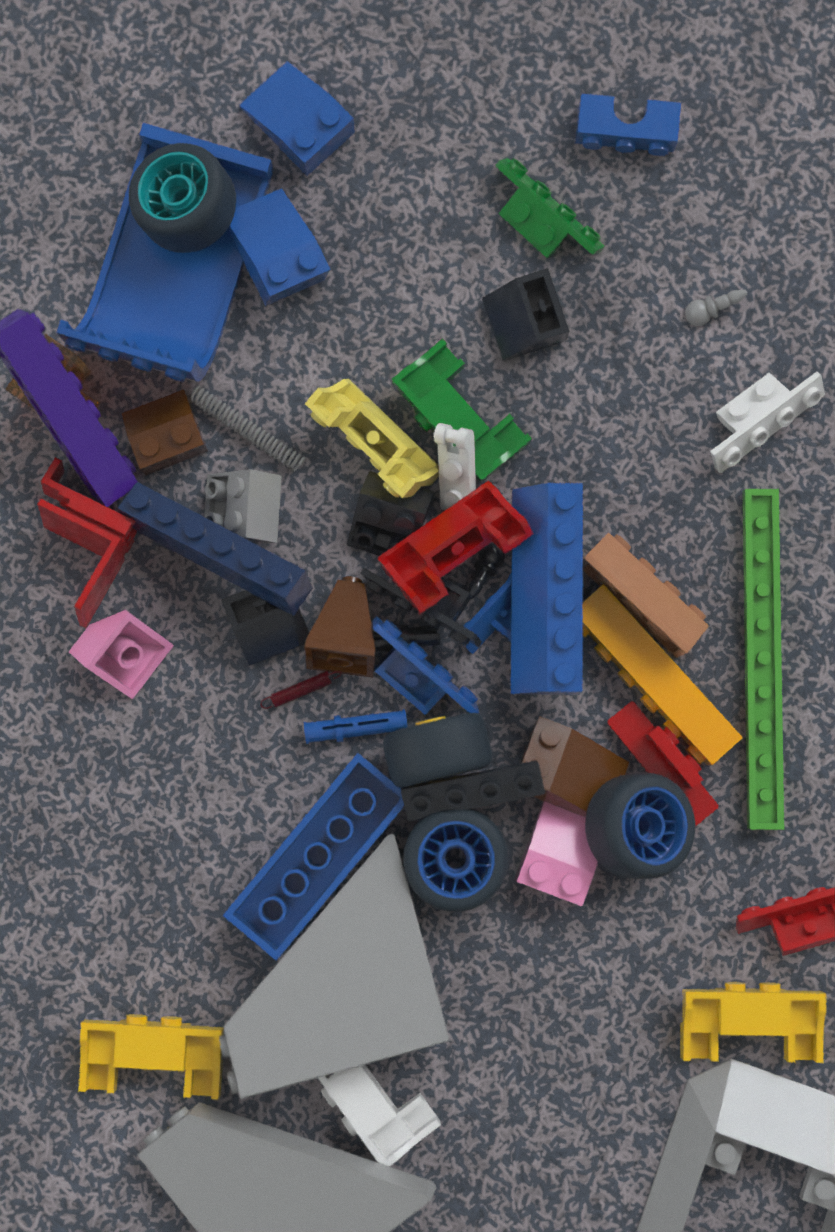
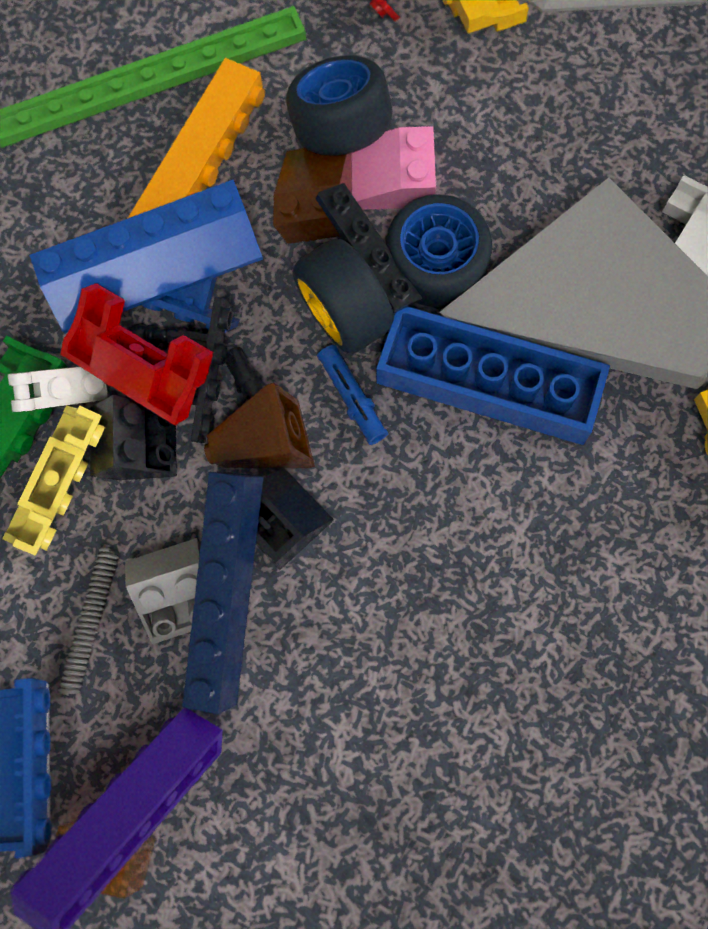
camera: 105 degrees left, 10 degrees down
(90, 527) = (250, 745): red piece -> none
(121, 651) = (370, 654): bright pink slope -> none
(163, 432) = (120, 706): reddish brown slope -> none
(300, 689) = (336, 461): dark red piece -> none
(414, 675) = (280, 353): blue bracket -> none
(644, 595) = (128, 173): nougat slope -> none
(659, 755) = (265, 126): red bracket -> none

